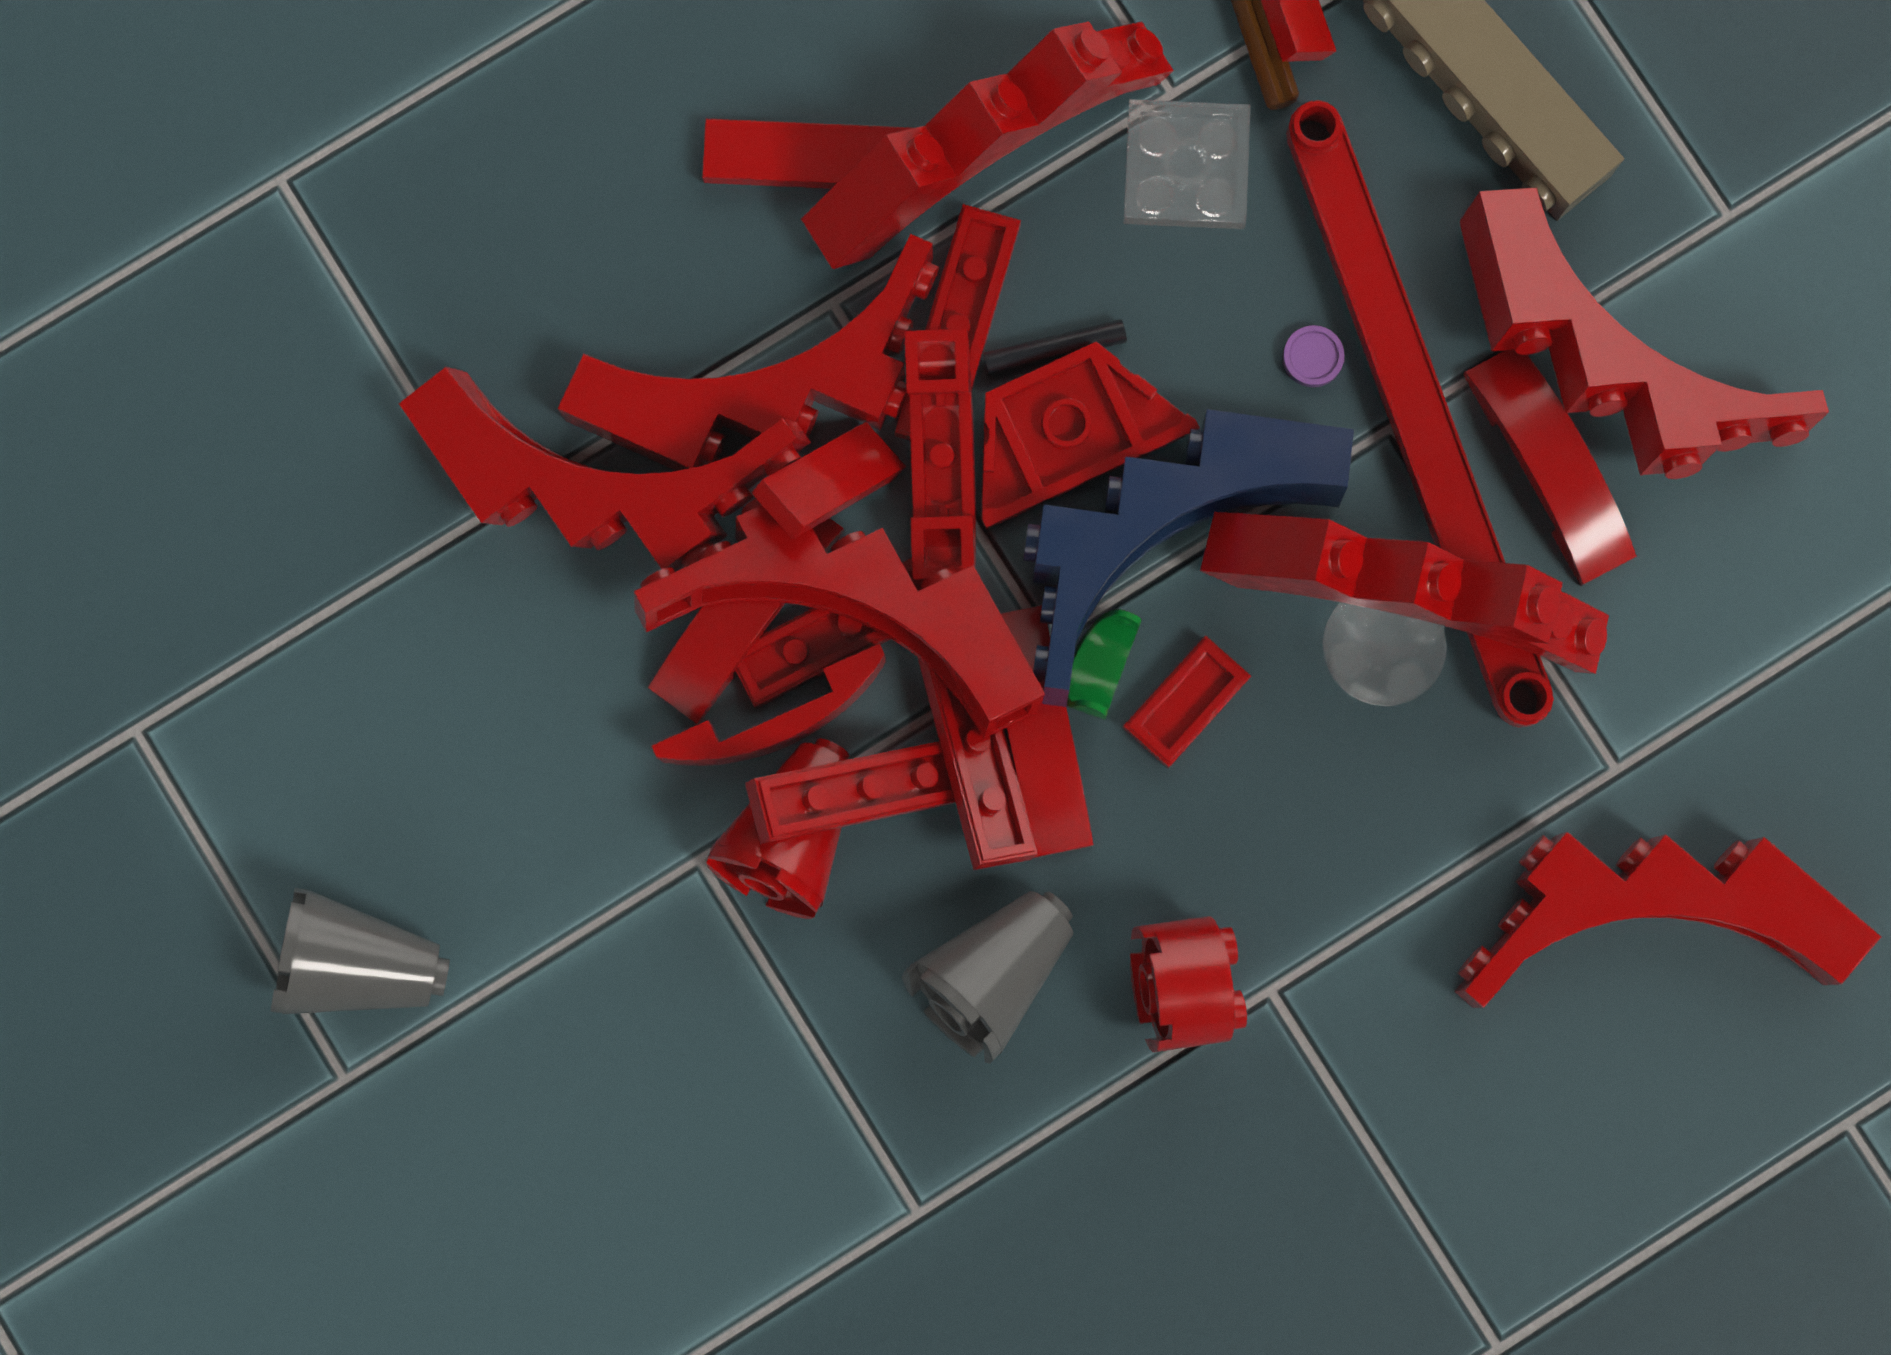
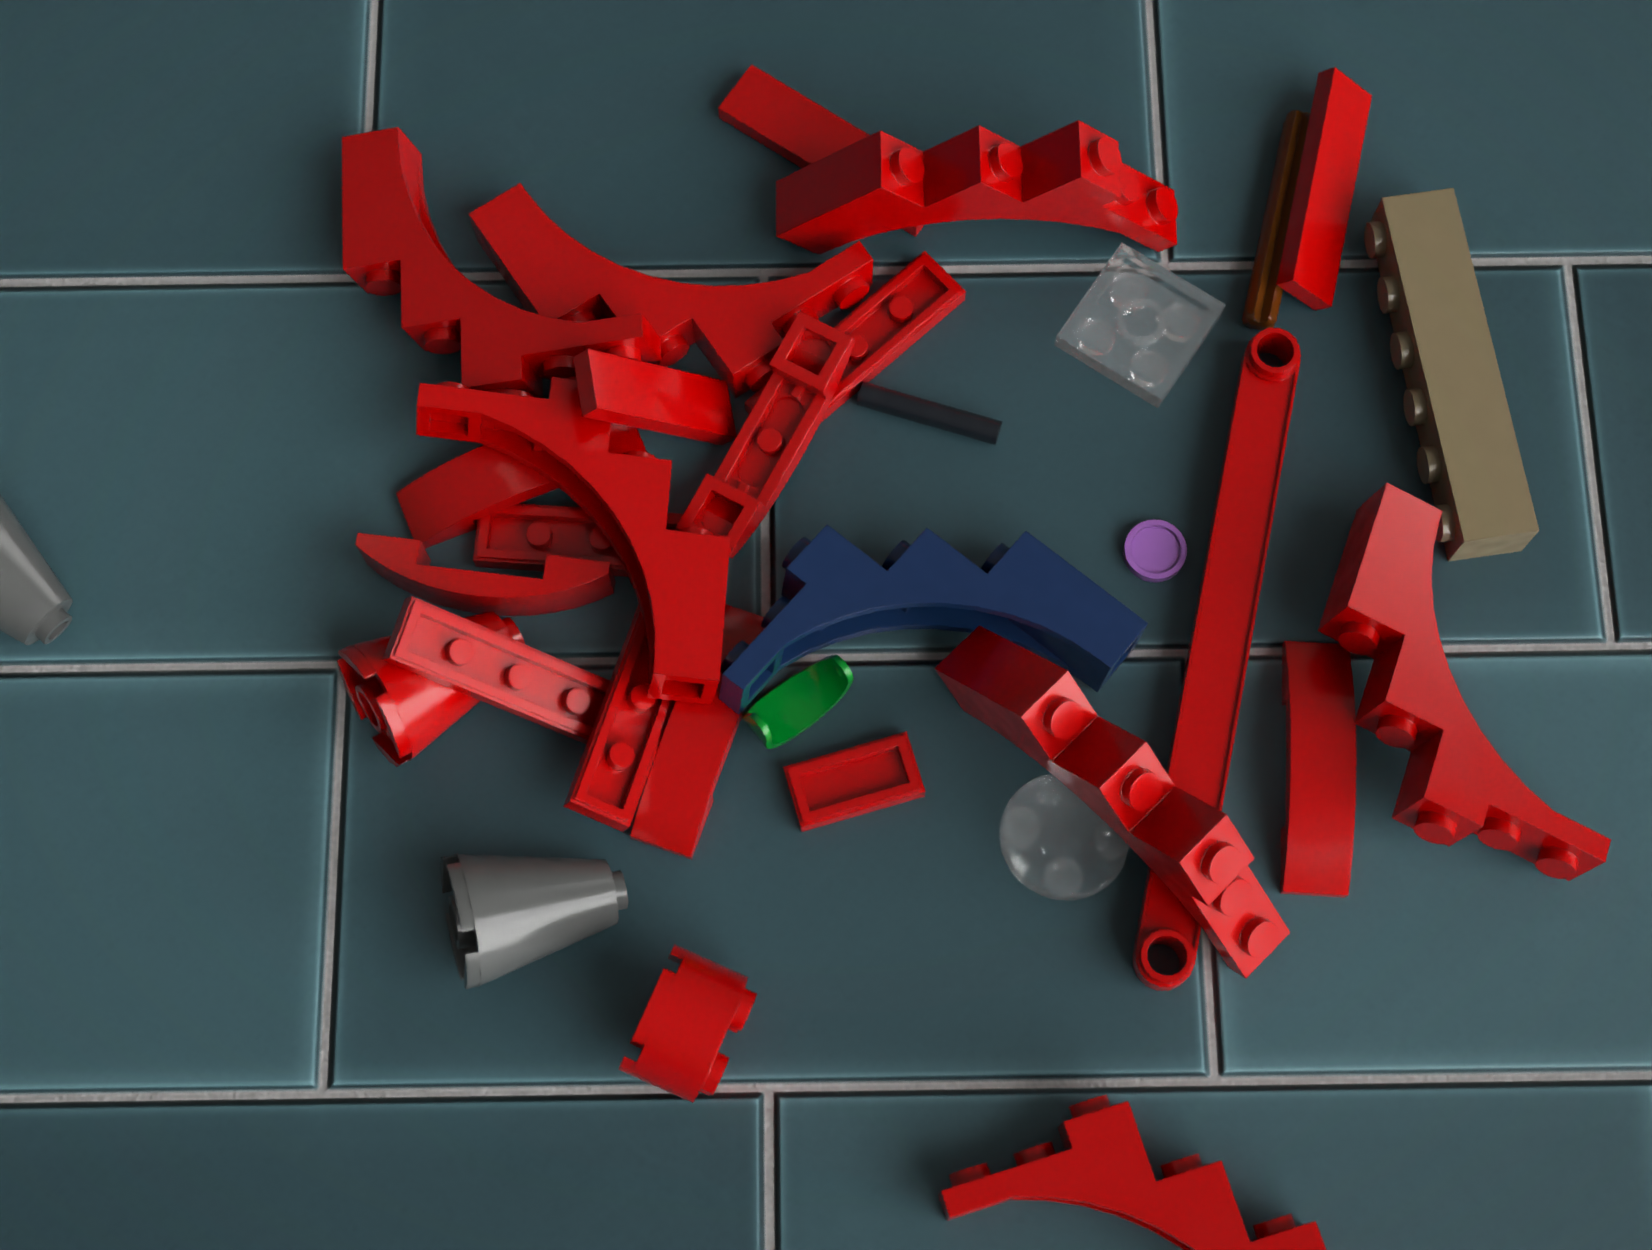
camera: 30 degrees right, 10 degrees down
(1068, 429) = (892, 481): red wing -> none

